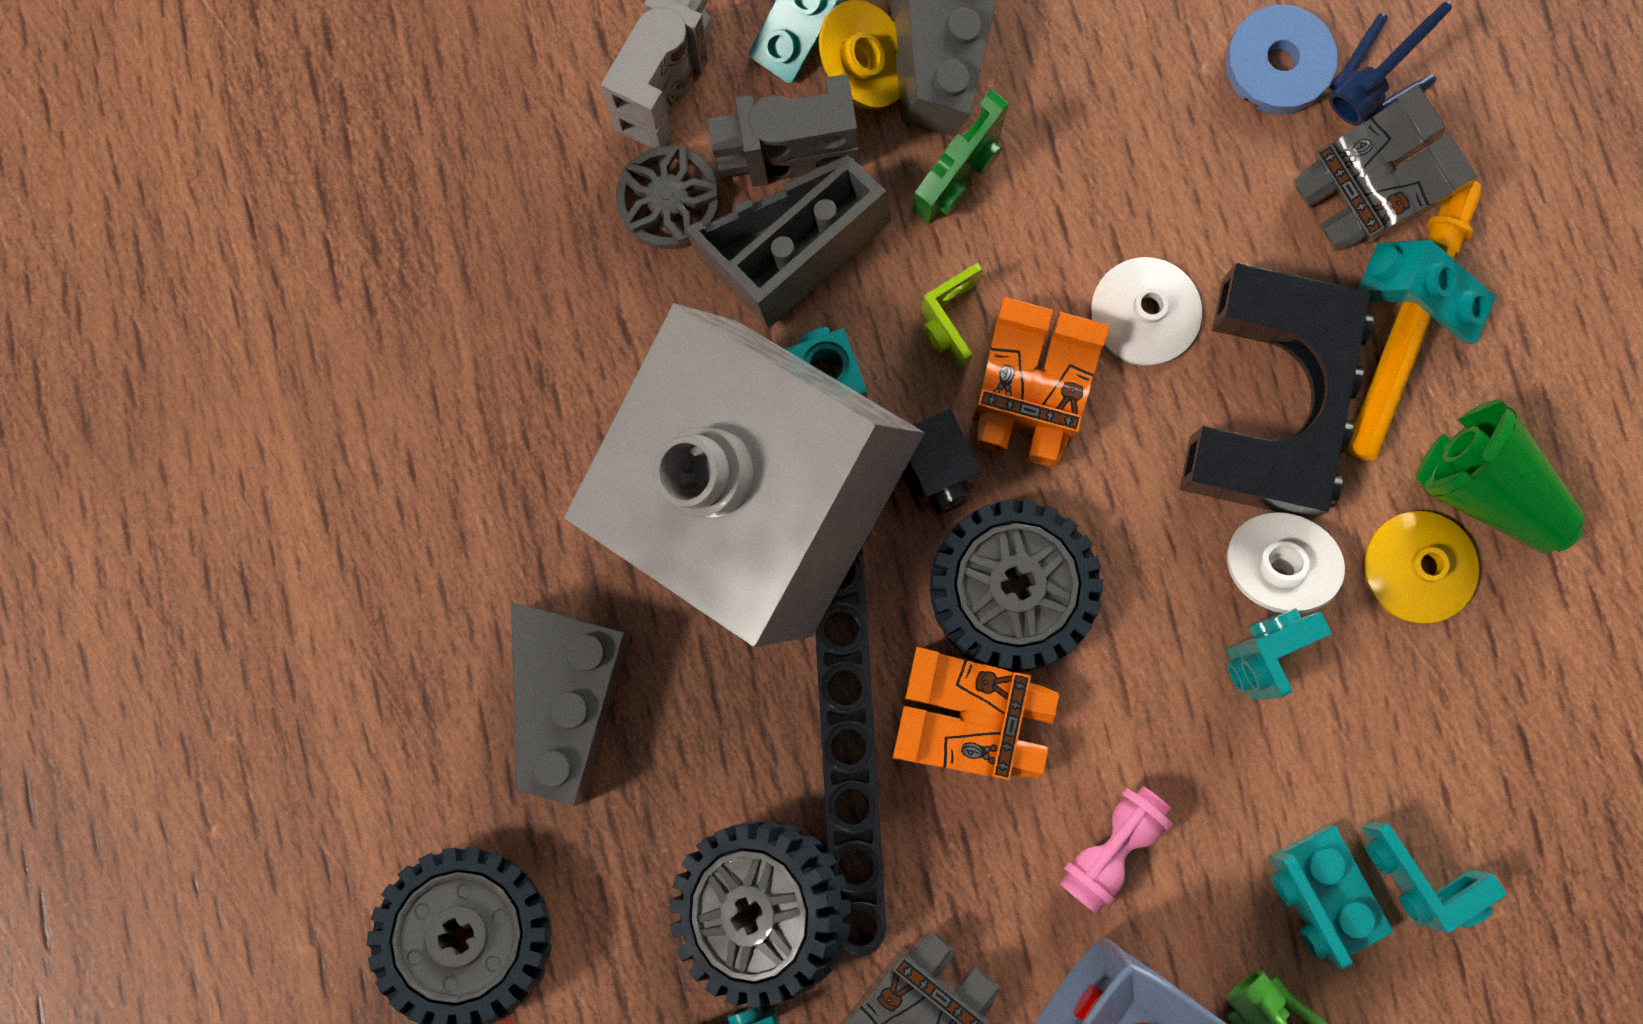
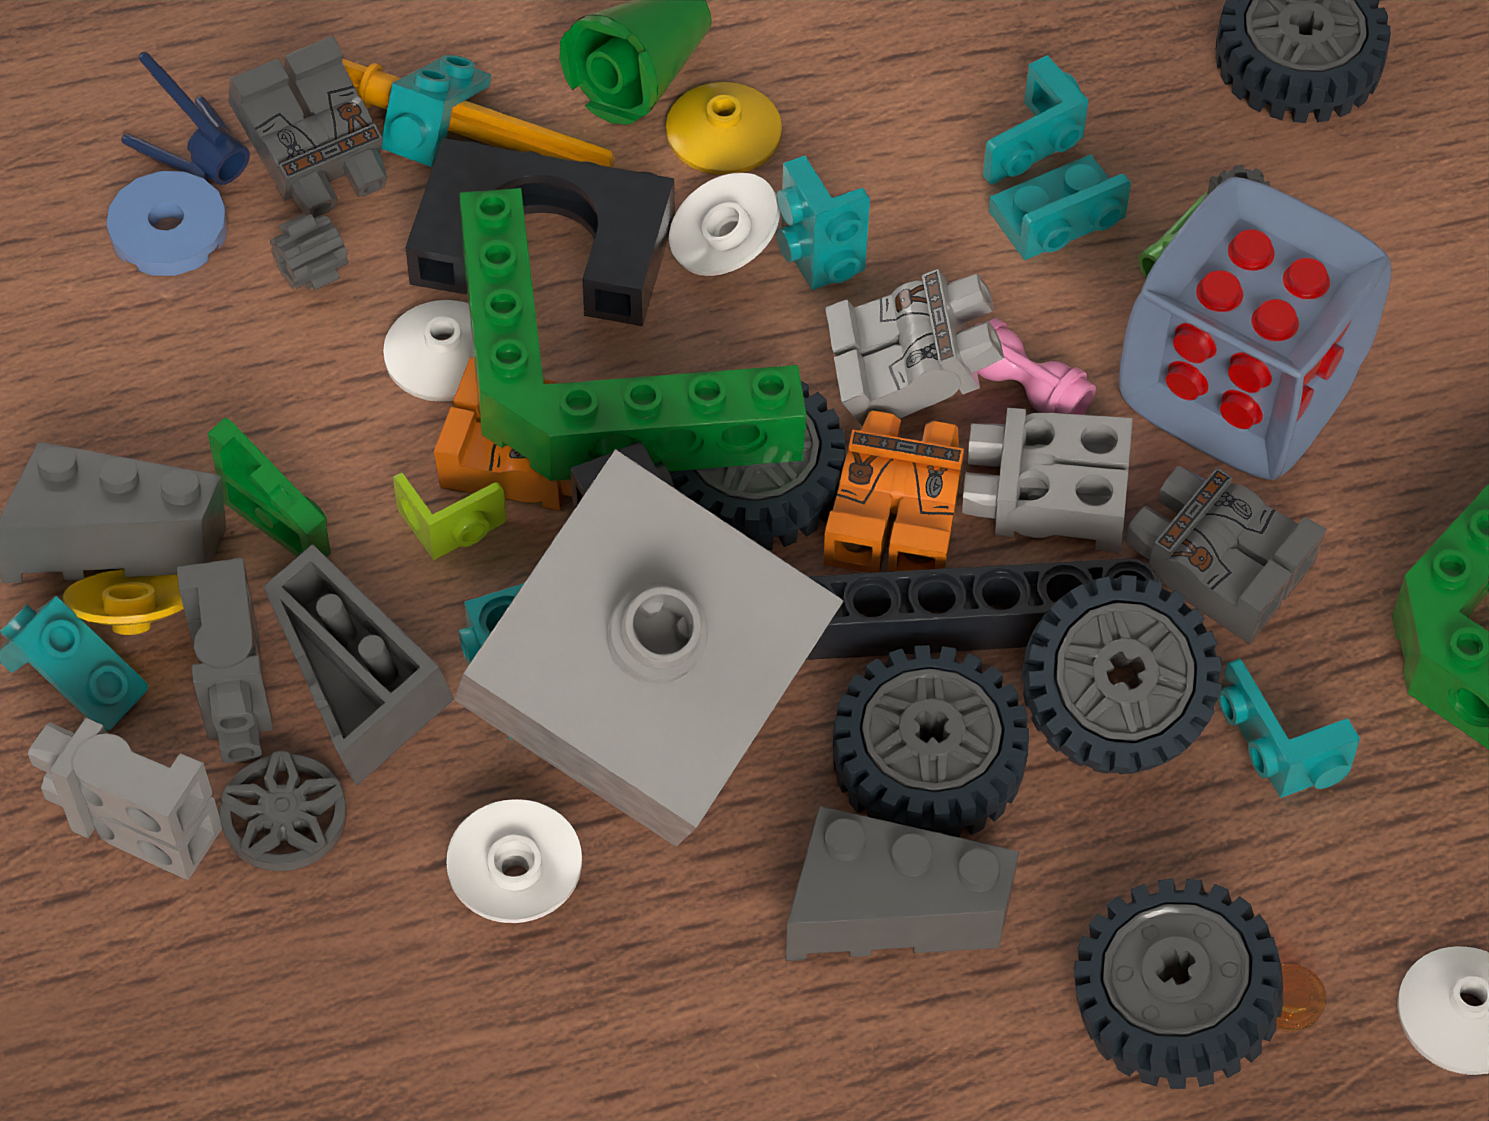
camera: 95 degrees left, 25 degrees down
(583, 364) = (508, 836): none -> white dish
(712, 782) = (930, 742): none -> wheel
(987, 847) = (1054, 475): none -> light grey hips
(1011, 431) = (679, 418): none -> green brick
(1132, 736) = (912, 345): none -> light grey hips
(1240, 181) = (309, 252): none -> dark grey gear

